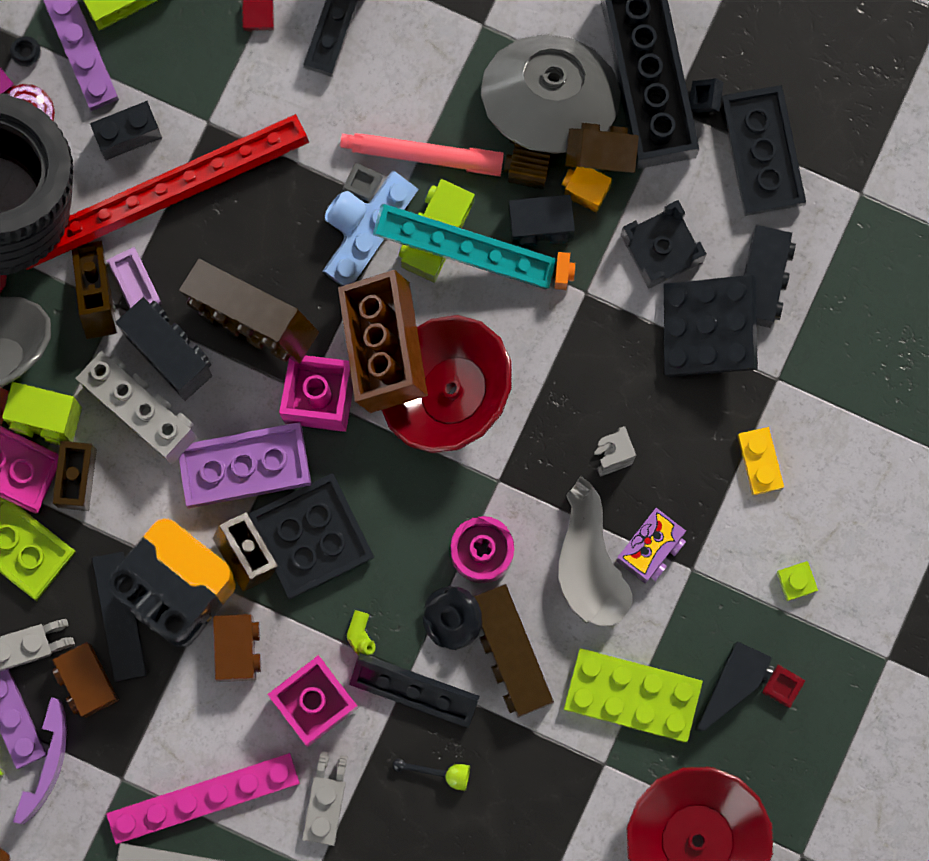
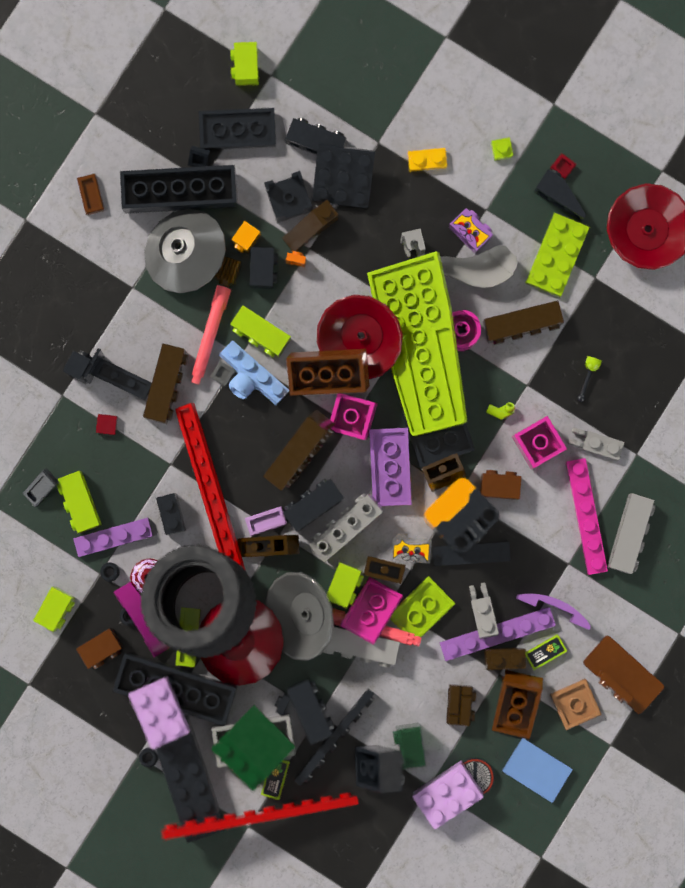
camera: 80 degrees left, 5 degrees up
(85, 680) = (508, 578): reddish brown brick -> none
(114, 516) = (411, 549): none -> brick
(333, 93) = (165, 383): none -> dark brown brick
(414, 690) = (539, 382): black plate -> none
(423, 498) = (428, 365): none -> lime wing
(452, 617) = (499, 353): black tile -> none
(464, 246) = (275, 315): teal plate -> none
(602, 149) = (227, 223): dark brown brick -> none
(621, 288) = (311, 226): none -> dark brown slope
(872, 148) = (246, 63): none -> lime brick

